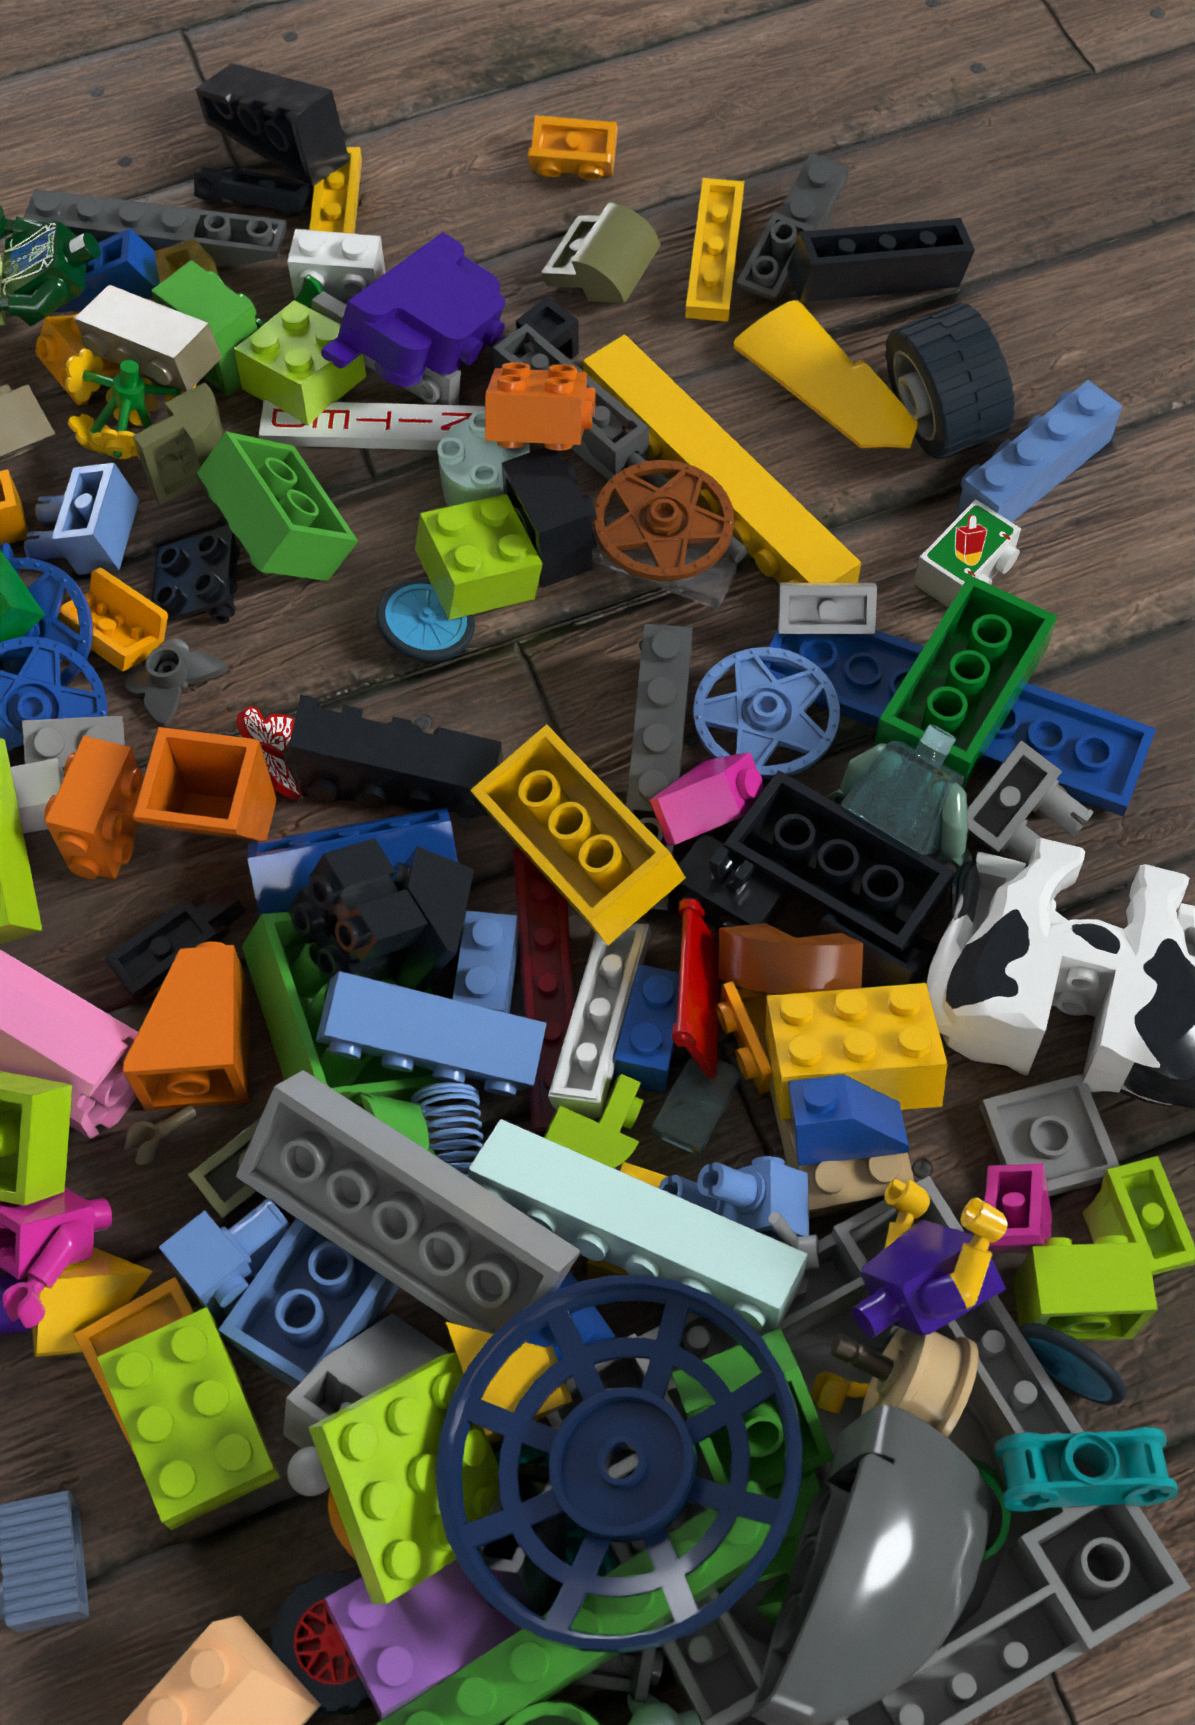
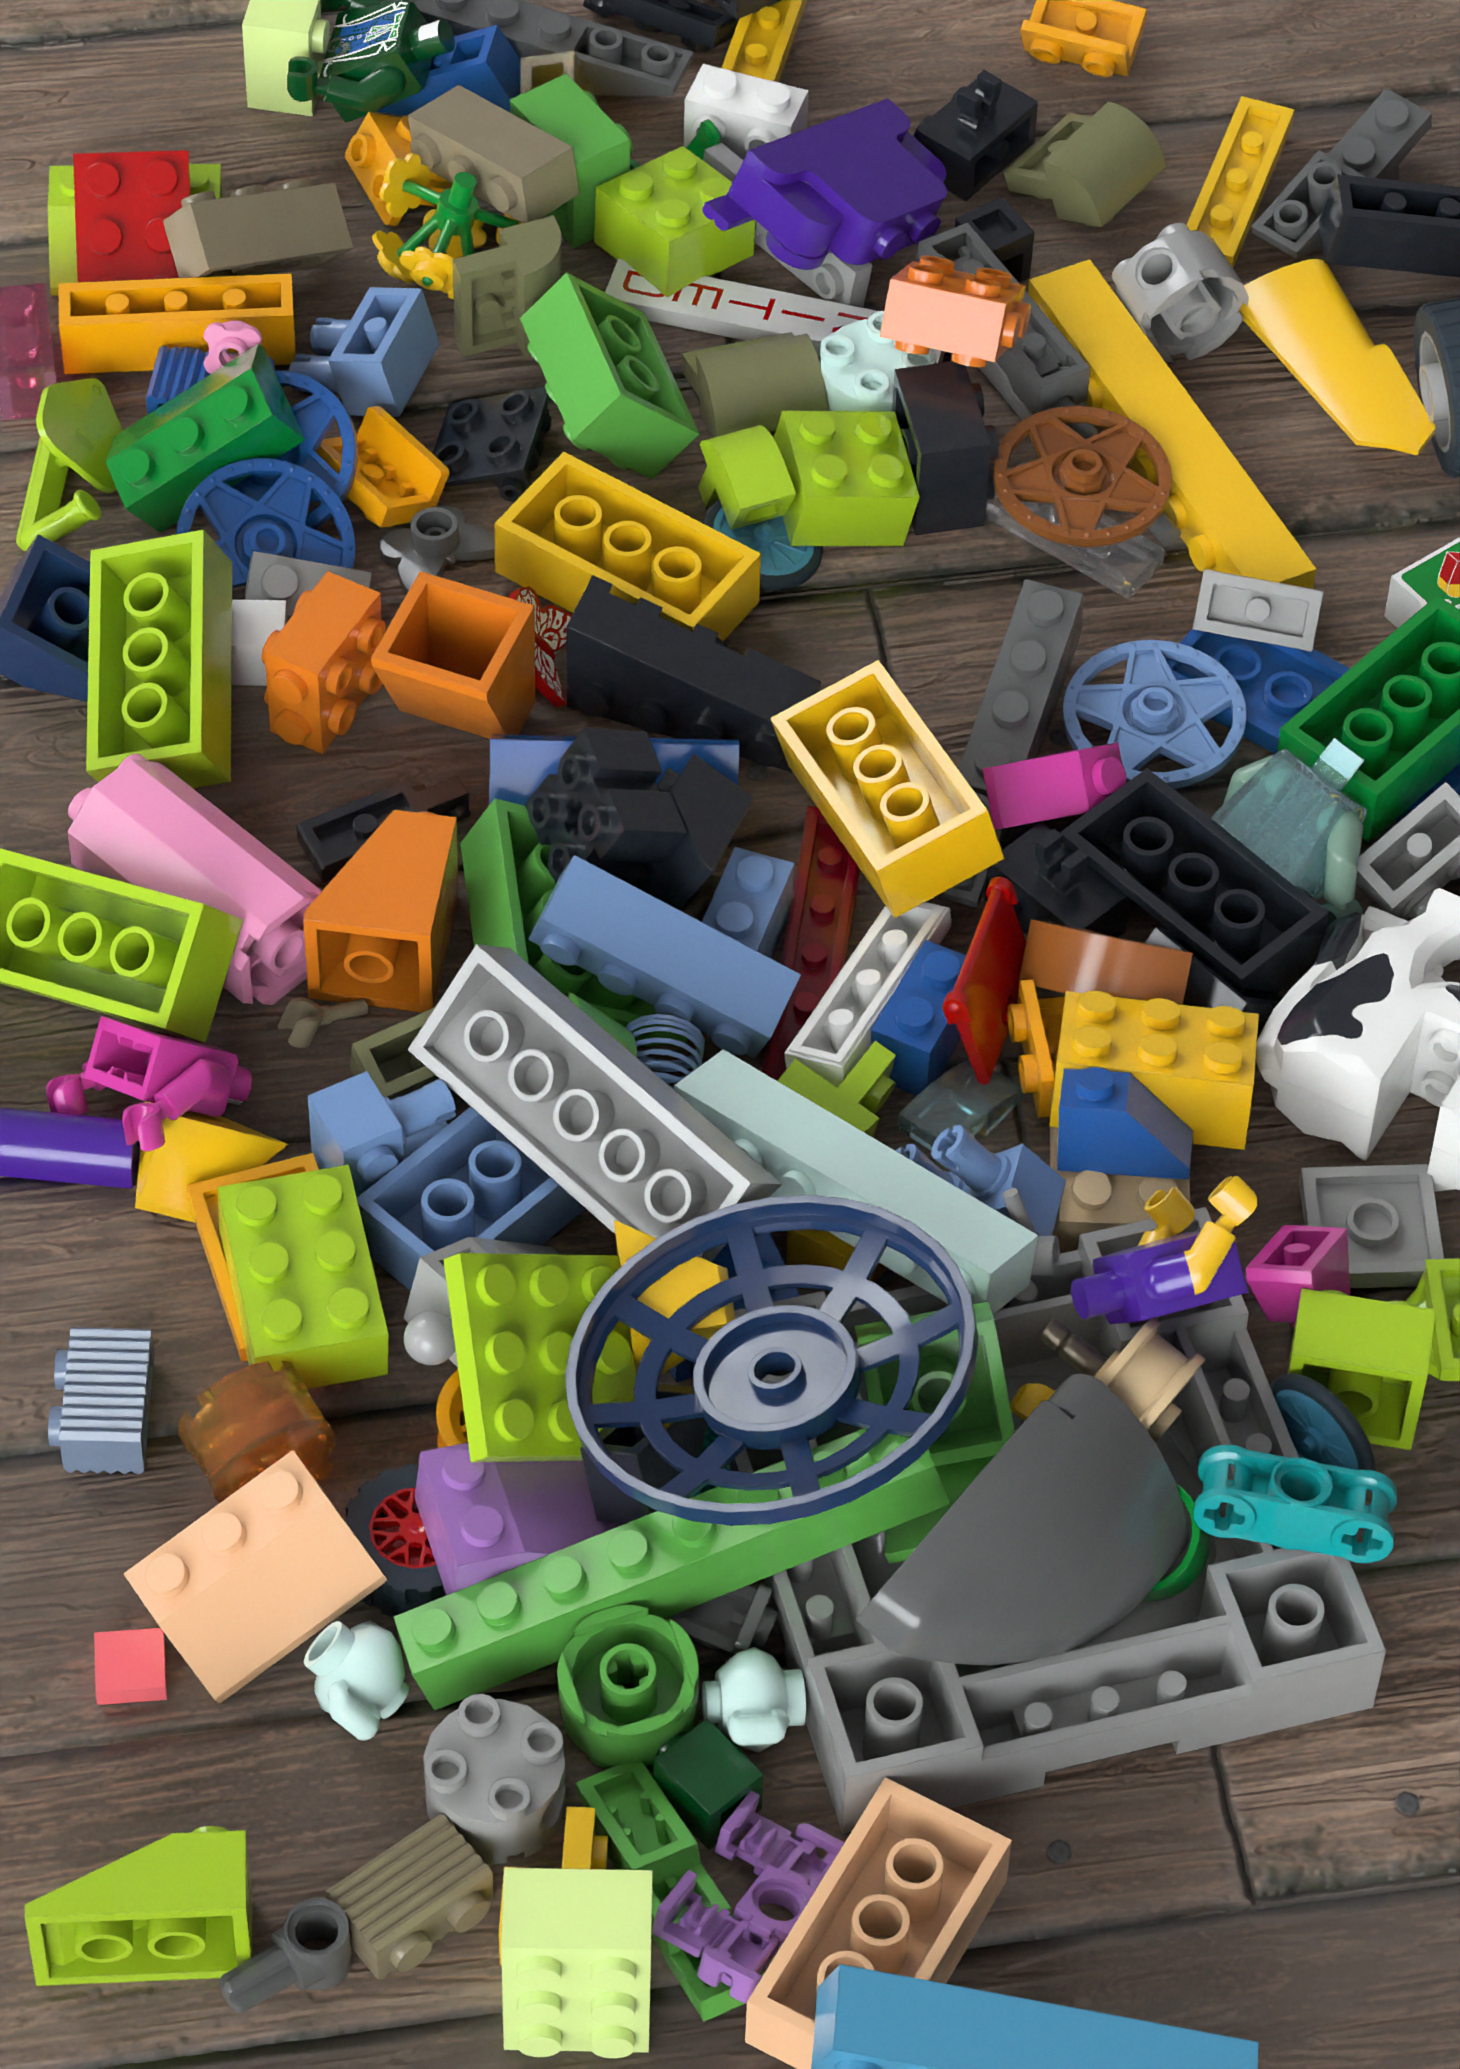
camera: 10 degrees right, 10 degrees down
(179, 1581) = (253, 1423): none -> clear orange brick
(298, 648) = (592, 524): none -> yellow brick
(393, 487) = (755, 381): none -> olive brick
(403, 572) = (746, 476): none -> lime brick
(515, 244) = (979, 132): none -> black brick
(700, 348) = (1181, 292): none -> light grey brick

